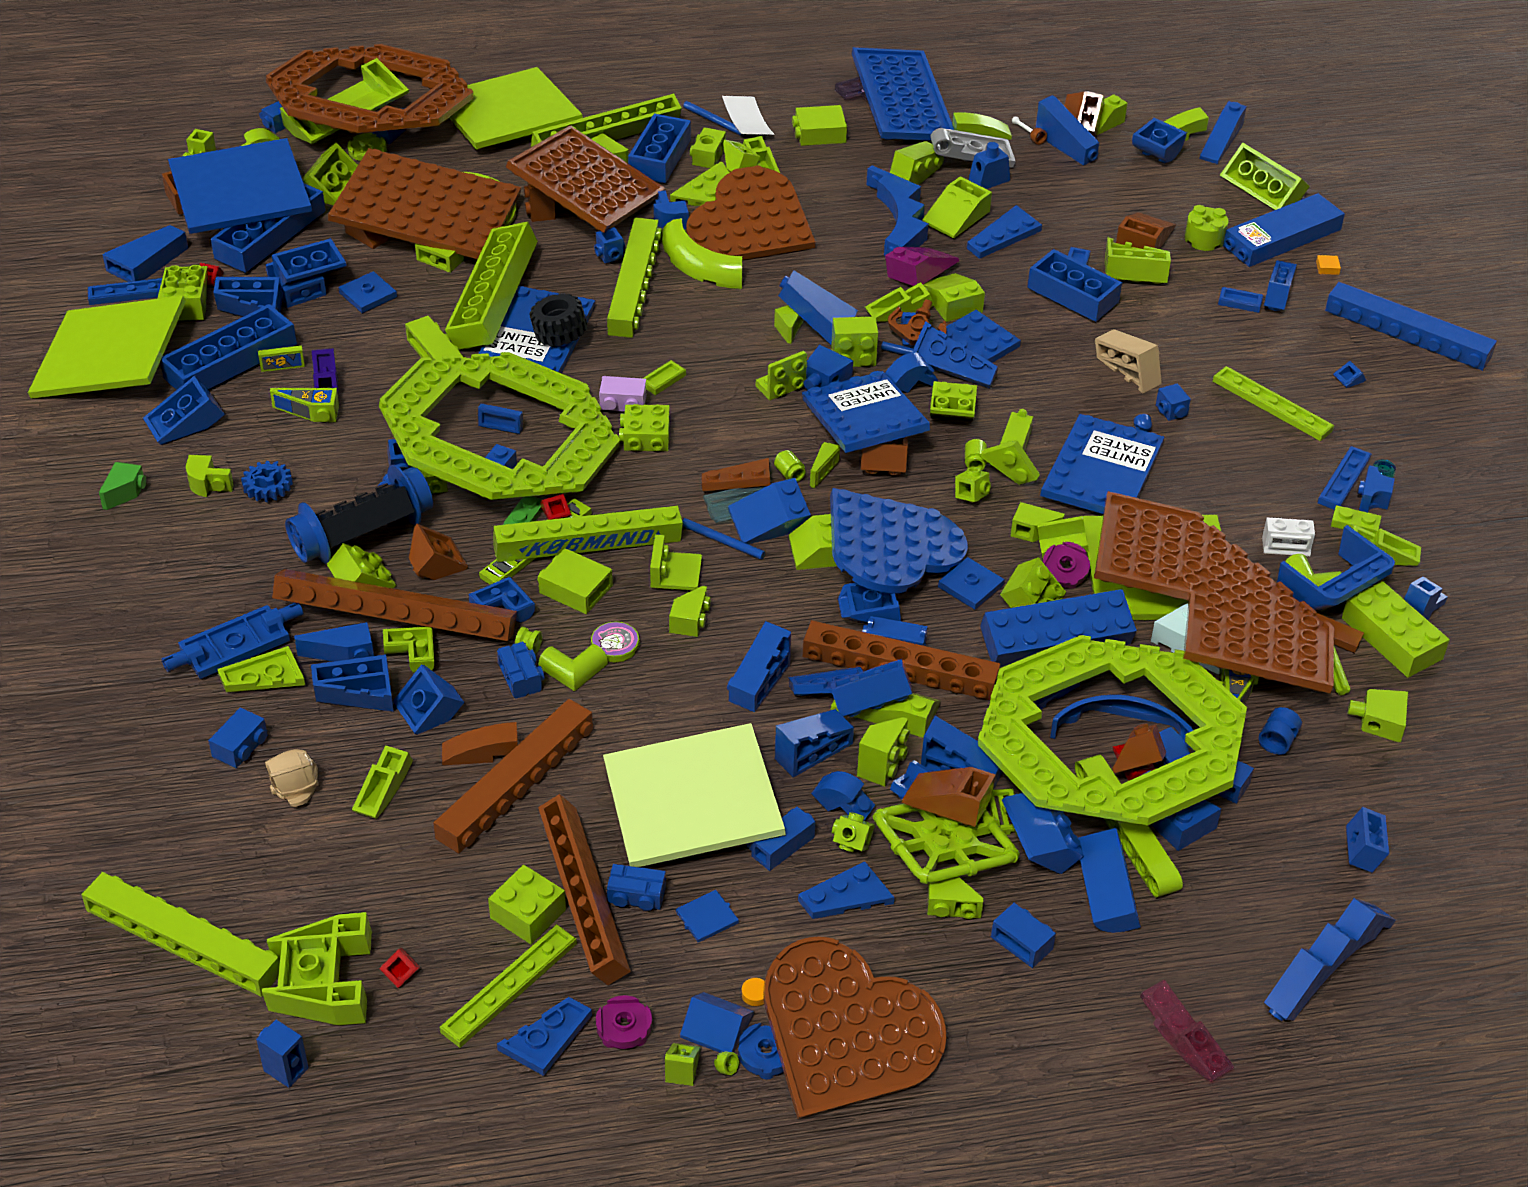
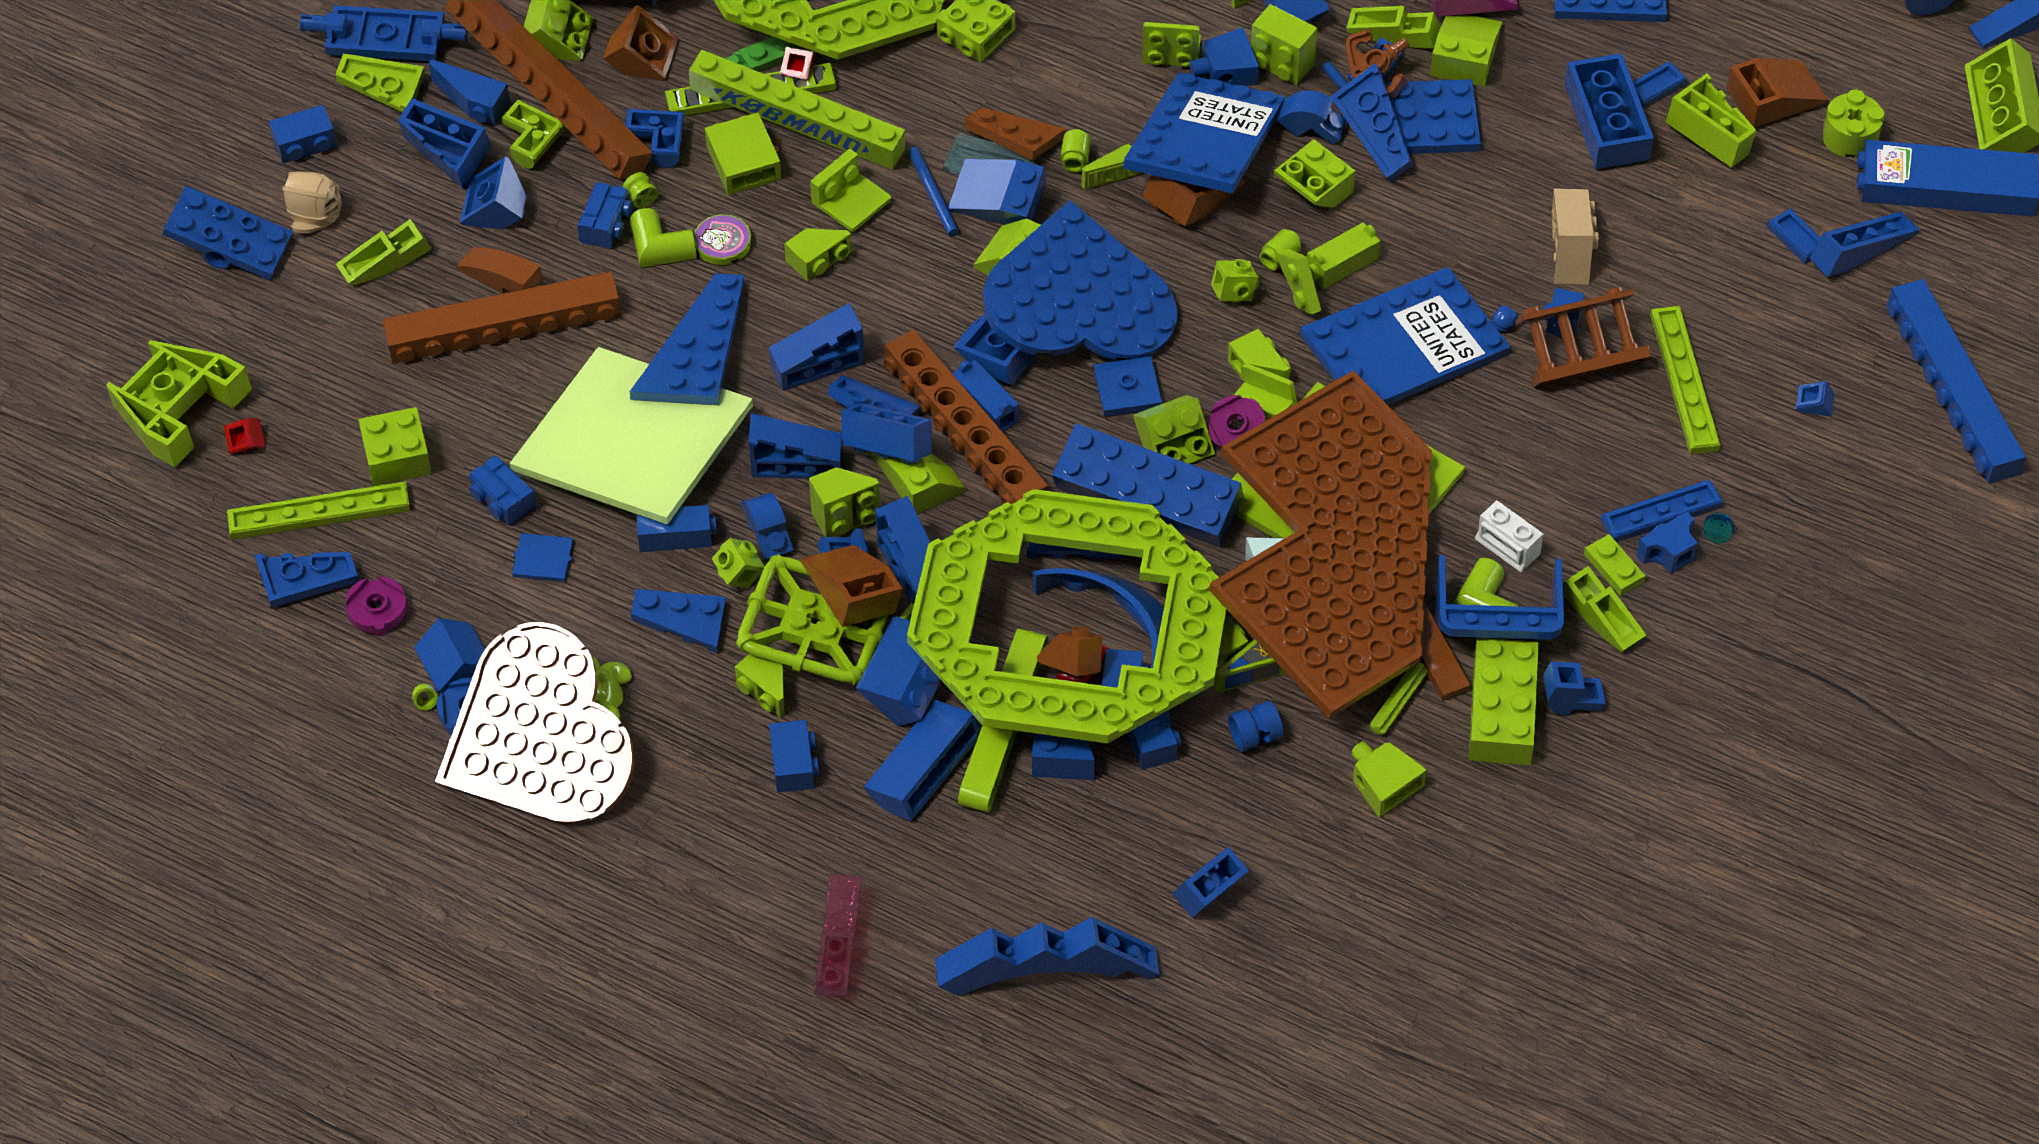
camera: 40 degrees right, 10 degrees up
(182, 933) = (98, 288): lime brick -> none
(249, 834) = (227, 234): none -> blue plate
(282, 1053) = (77, 449): blue brick -> none
(584, 890) = (450, 462): dark orange brick -> none
(679, 717) = (697, 352): none -> blue wing
(681, 1064) = (387, 670): lime slope -> none
(1223, 413) = (1575, 364): none -> dark orange fence
(1328, 264) = (1957, 251): light orange tile -> none

